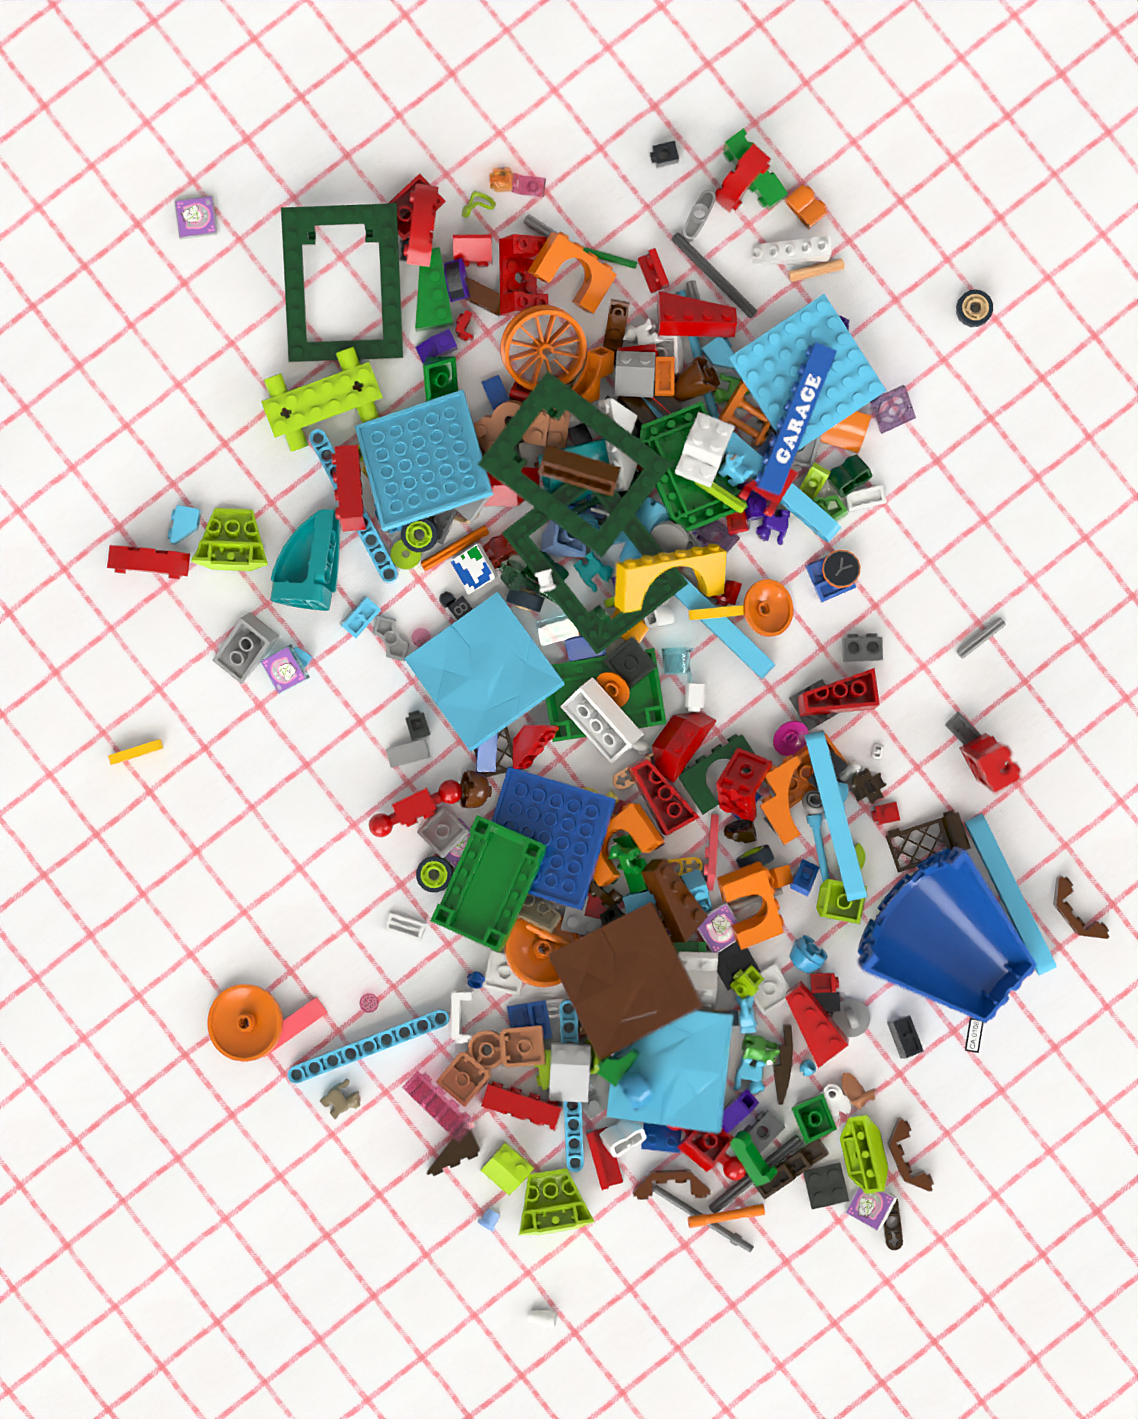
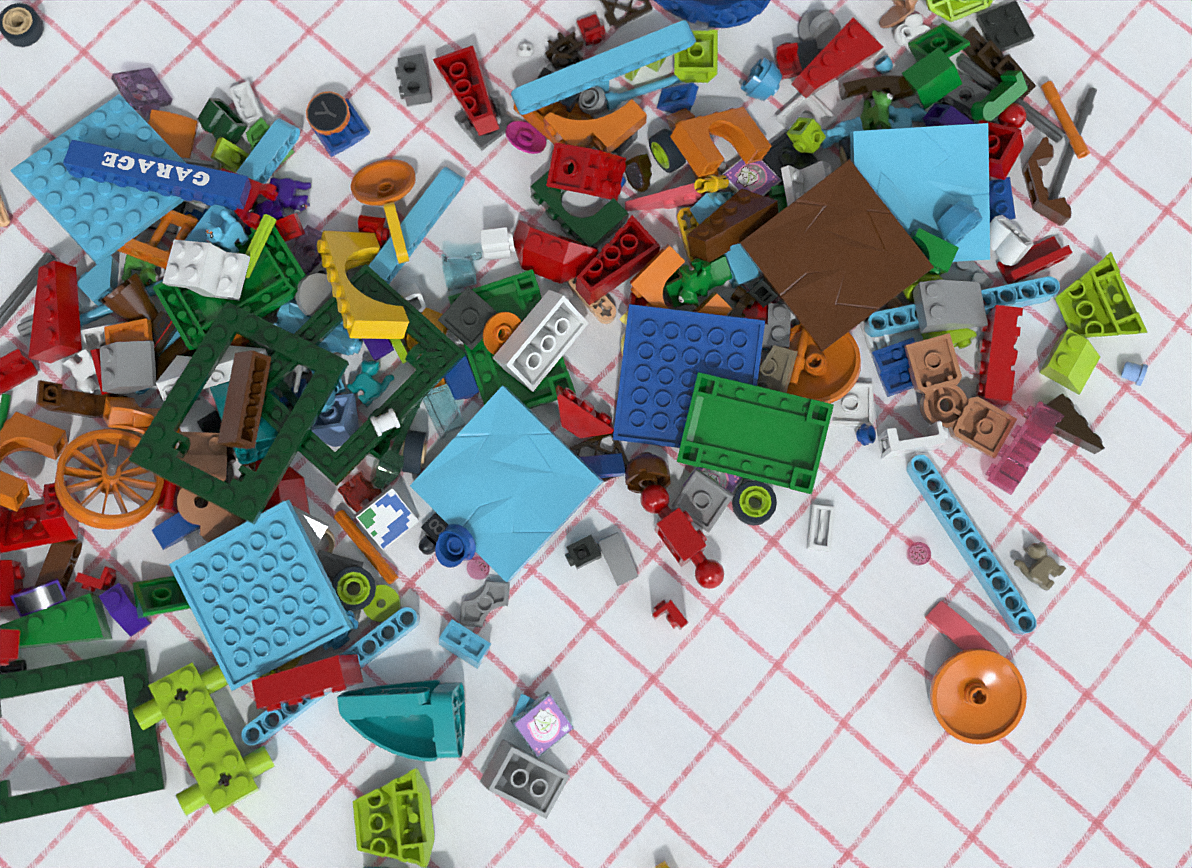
camera: 95 degrees left, 10 degrees down
(350, 789) = (674, 616): none -> red bracket
(440, 621) = (454, 546): none -> blue piece
(714, 890) = (711, 183): none -> yellow pin
(779, 1102) = (932, 77): none -> green slope

